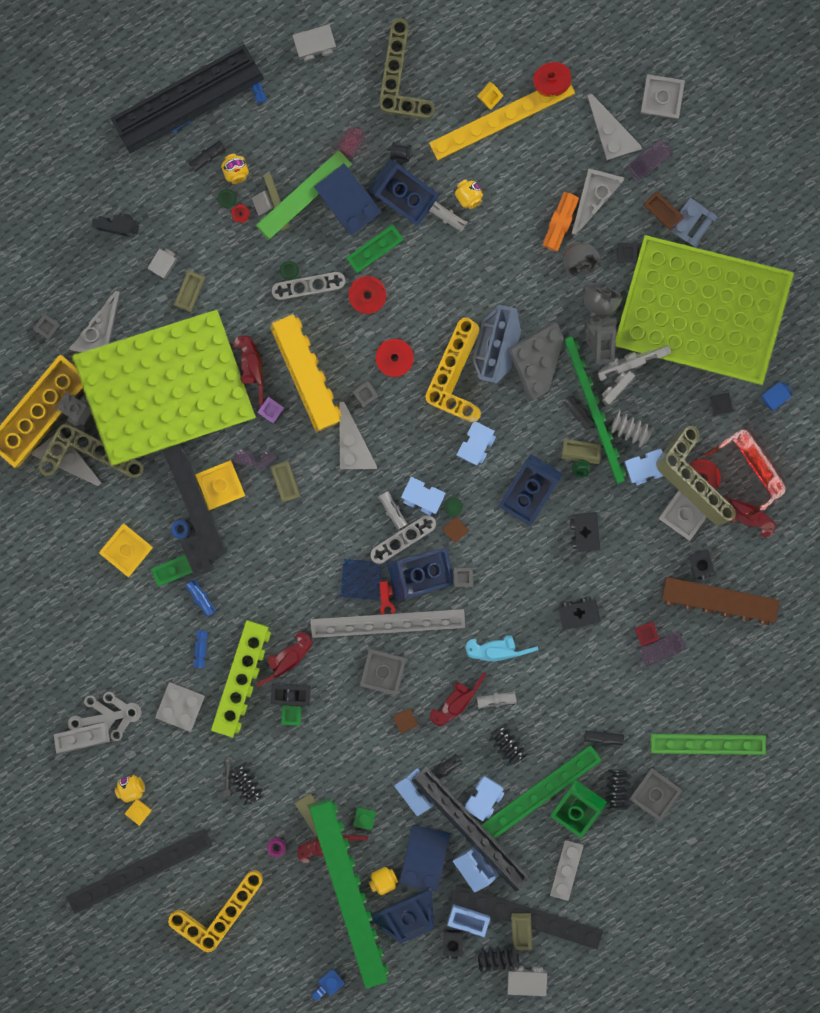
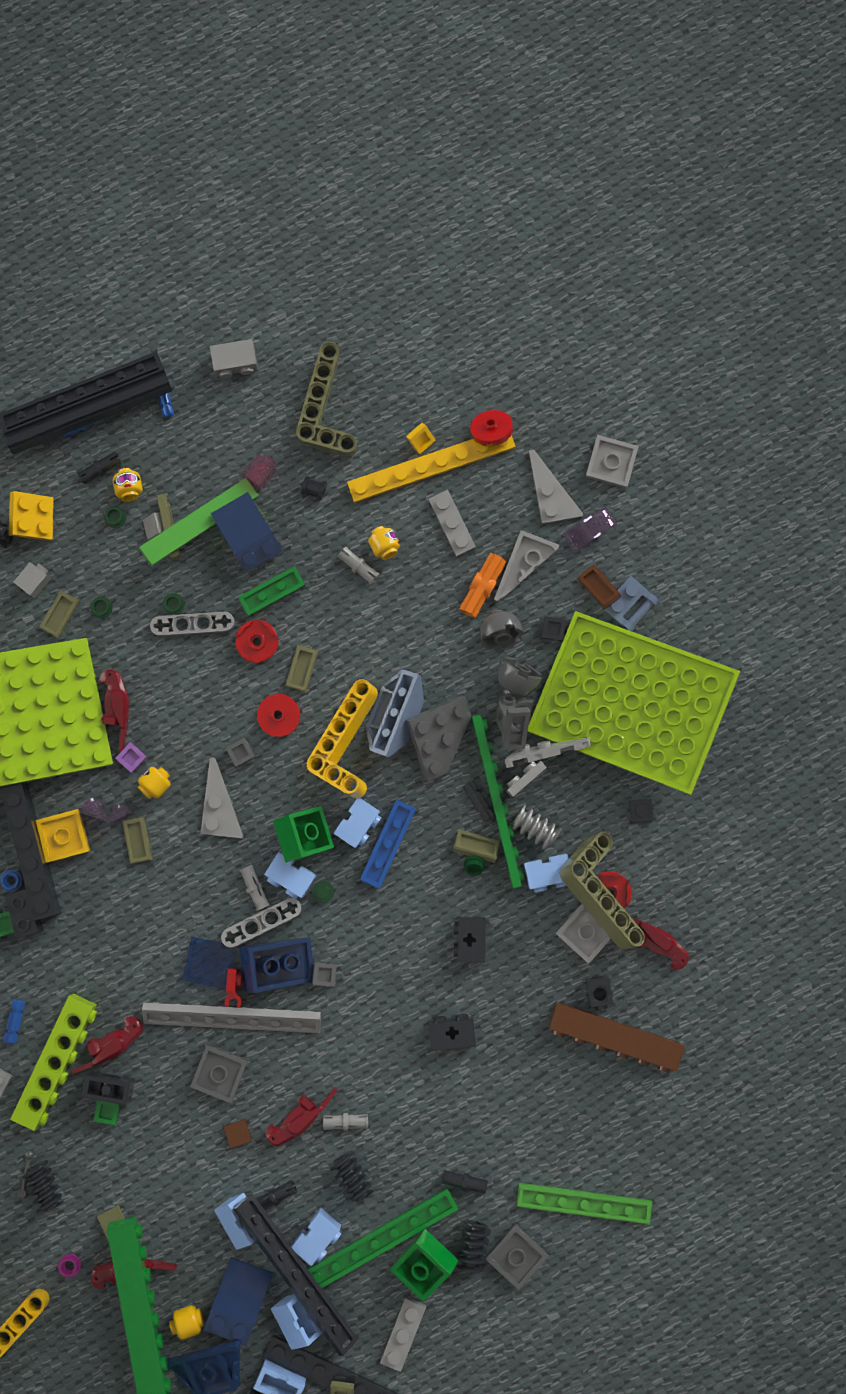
camera: 10 degrees right, 5 degrees down
(154, 207) = (31, 516): none -> yellow plate
(200, 598) = (22, 962): blue pin -> none
(226, 280) = (101, 607): none -> dark green plate
(240, 218) = (127, 540): red plate -> none
(294, 429) = (154, 782): none -> yellow head
(305, 373) = (173, 721): yellow brick -> none
(364, 818) = (176, 1243): green plate -> none
(403, 192) = (311, 532): dark blue slope -> none
(409, 314) = (301, 668): none -> olive tile
(430, 458) = (303, 834): none -> green brick
(455, 529) = (323, 918): reddish brown tile -> none
(495, 650) = (351, 1063): medium azure animal -> none
(504, 458) = (388, 844): none -> blue plate
(526, 169) = (452, 523): none -> light grey plate
(530, 489) = (413, 883): dark blue slope -> none
(646, 633) = (527, 1065): dark red plate -> none
(662, 649) = (543, 1086): clear purple slope -> none
(760, 462) = (679, 883): clear red windscreen -> none
(776, 395) = (704, 809): blue brick -> none

